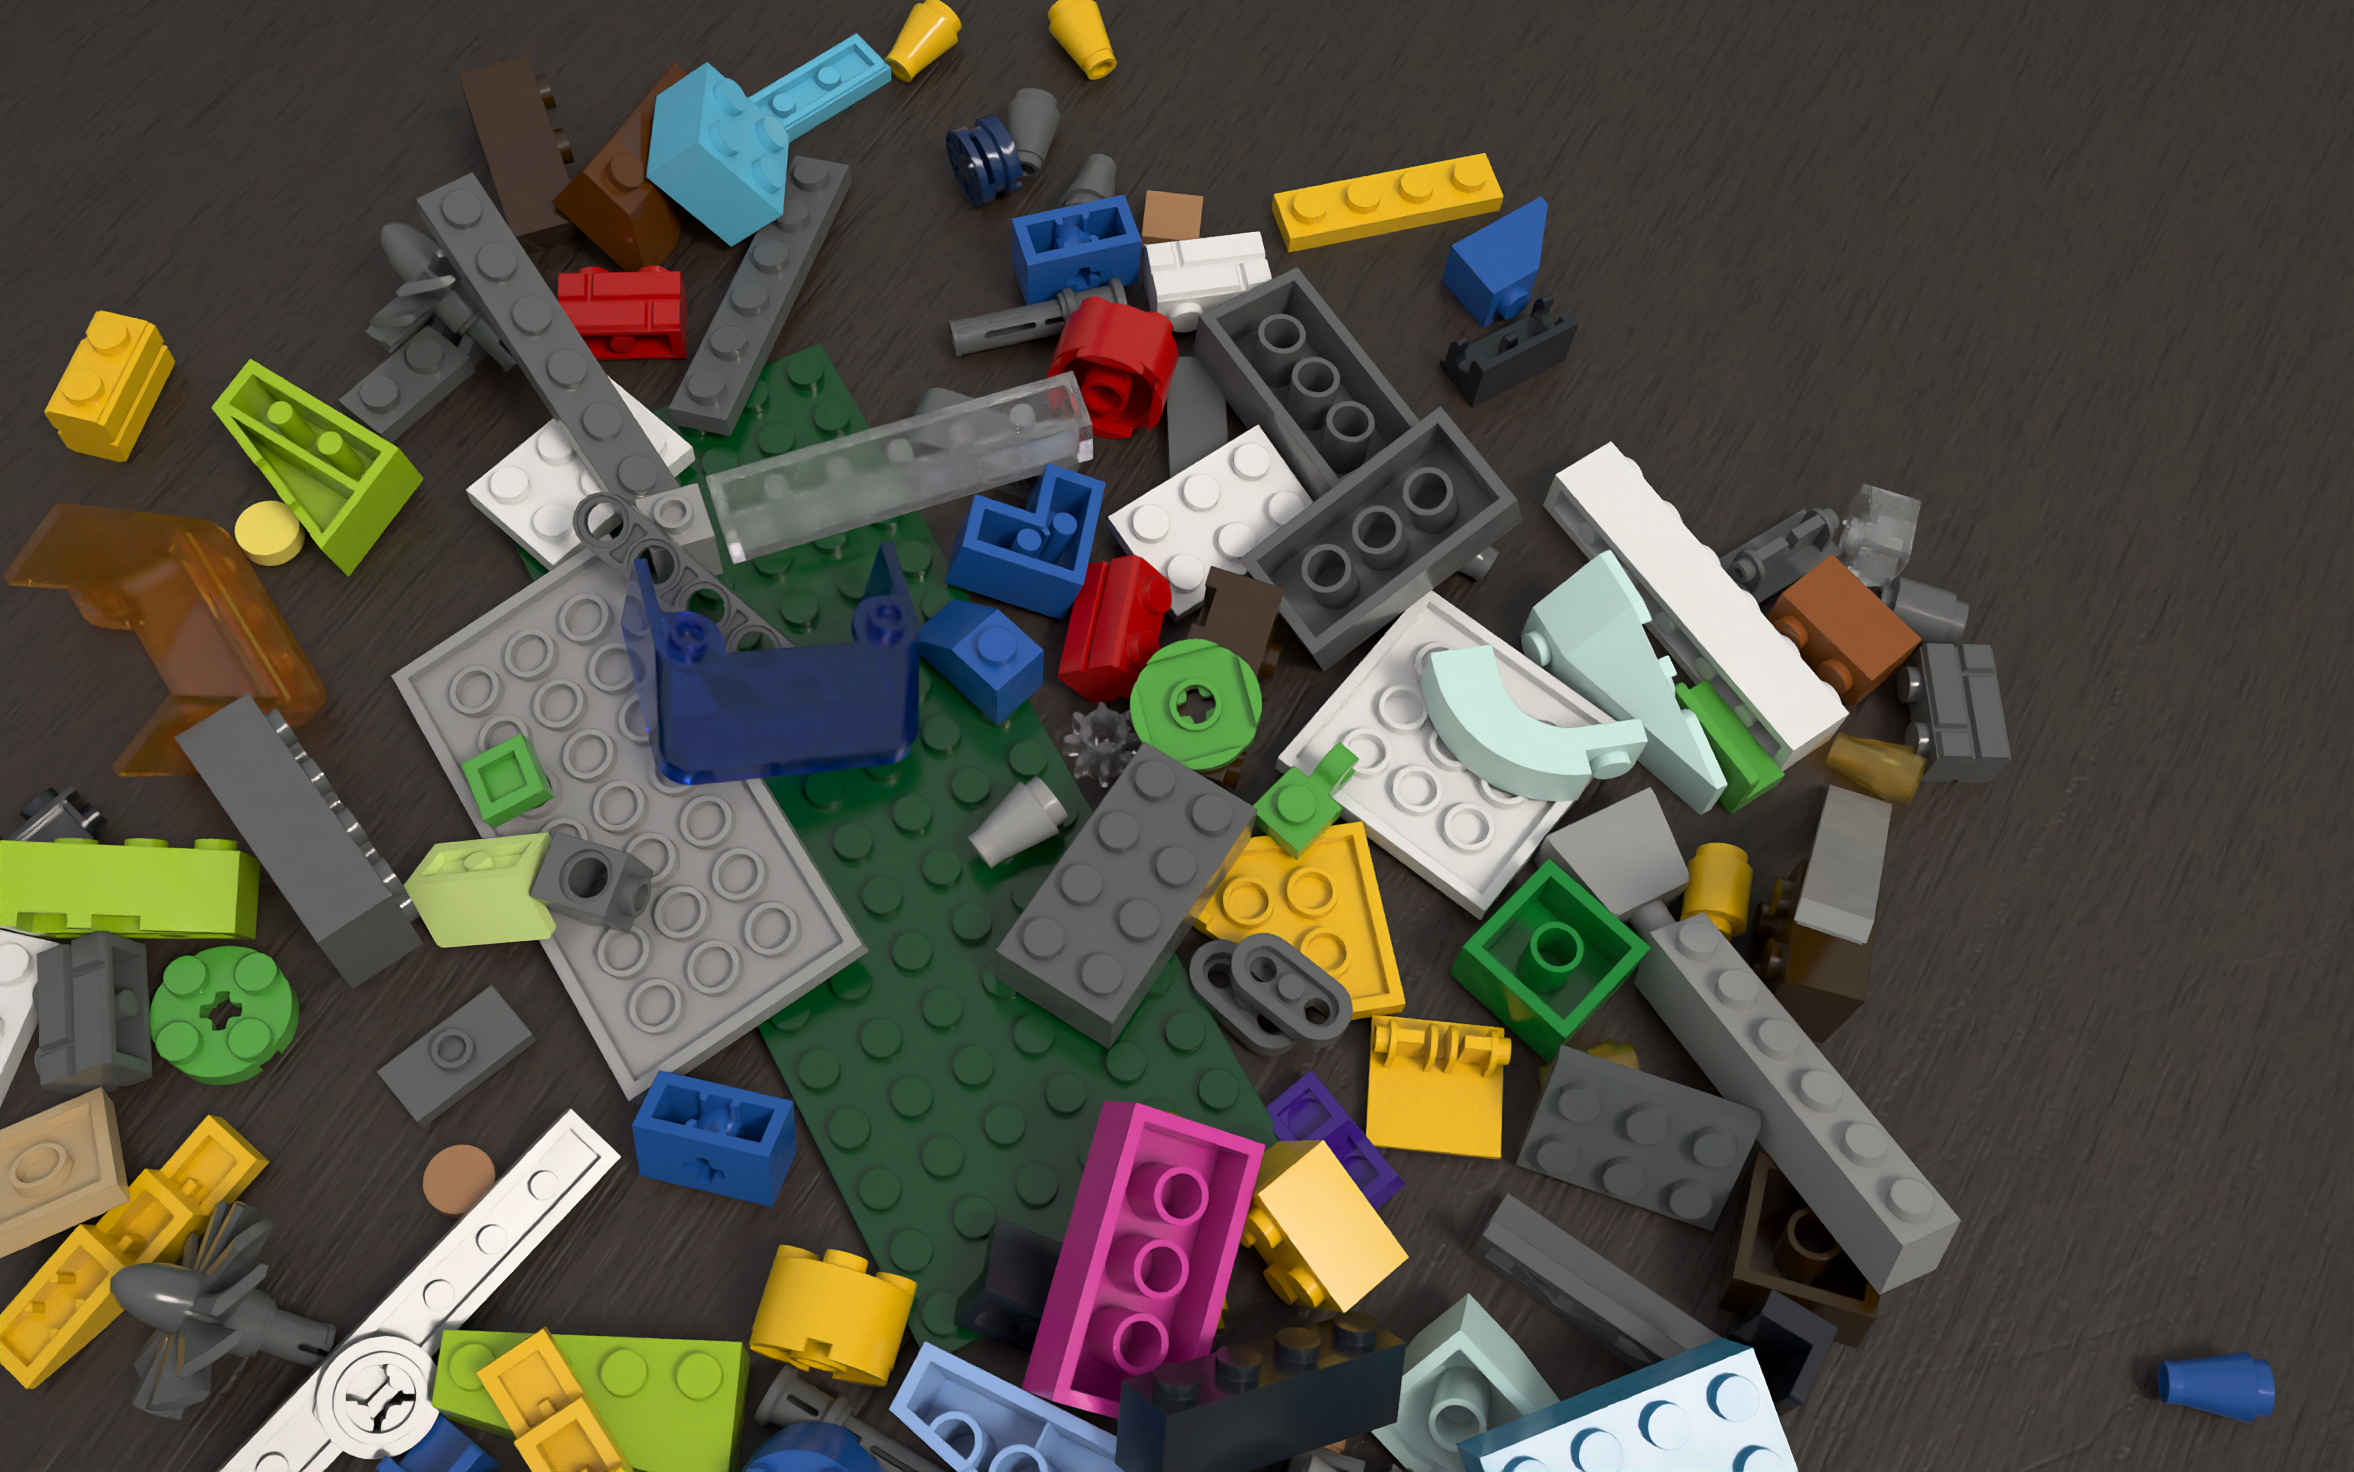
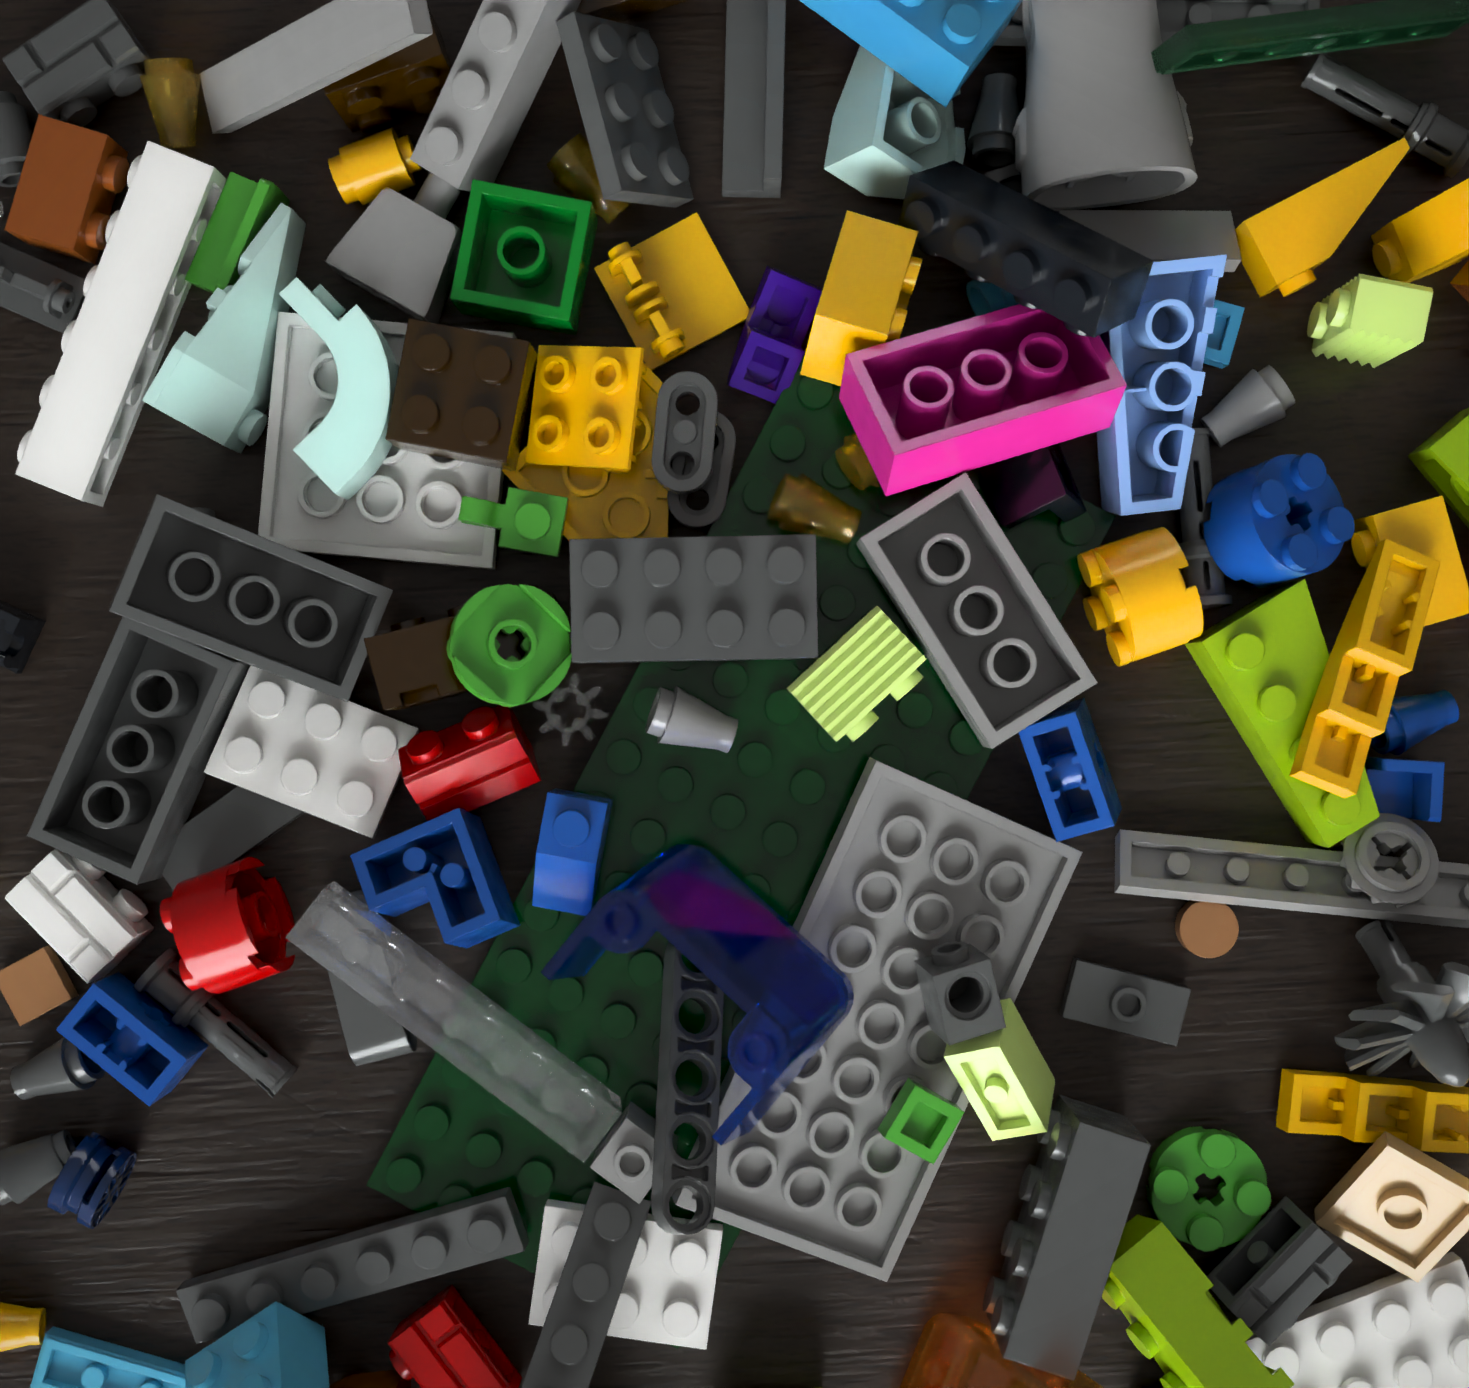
camera: 115 degrees left, 25 degrees up
(931, 1131) = (976, 612): none -> light grey brick
(954, 992) = (858, 675): none -> yellowish green brick
(1138, 1057) = (811, 509): none -> clear yellow cone
(1371, 921) = (585, 407): none -> yellow hinge
(1450, 817) = (462, 394): none -> dark brown brick

